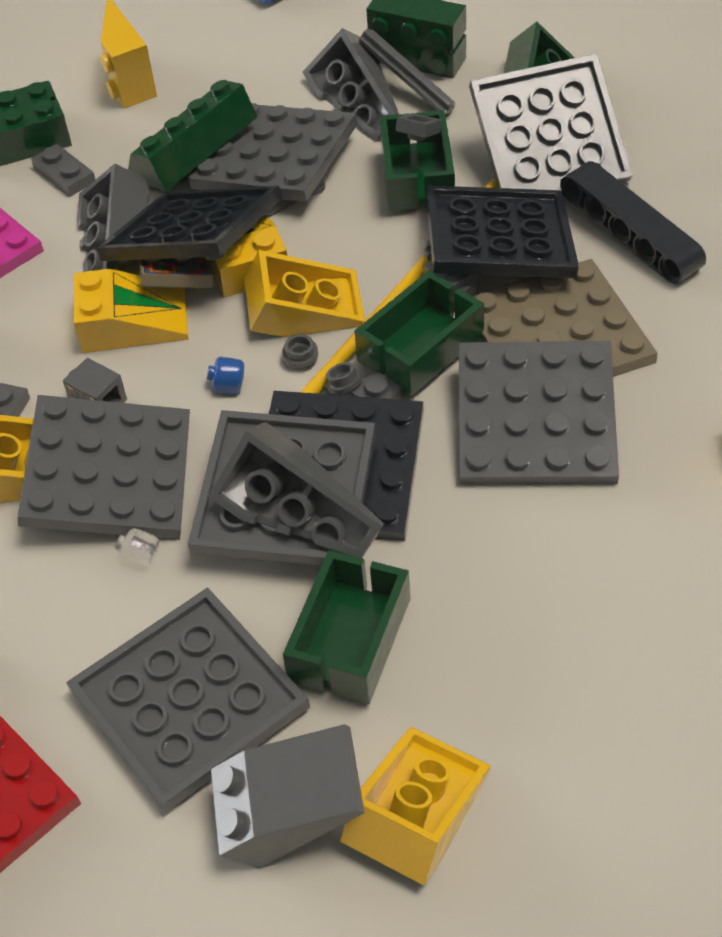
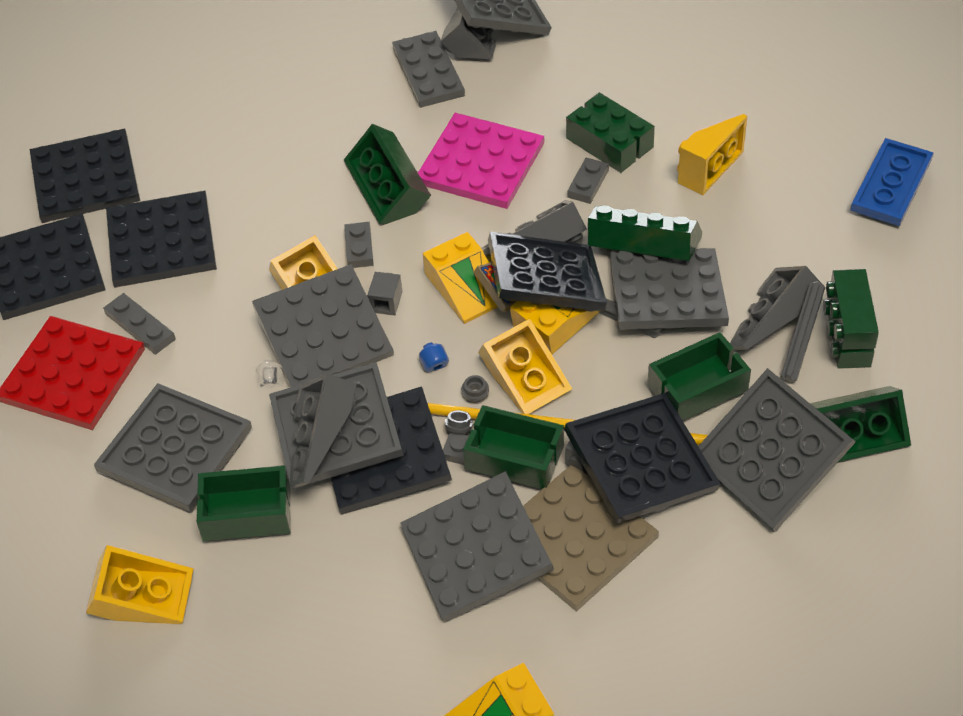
camera: 65 degrees right, 0 degrees up
(285, 795) = (106, 512): dark grey slope -> none
(418, 126) = (715, 358): dark grey plate -> none
(633, 222) = (708, 543): black beam -> none

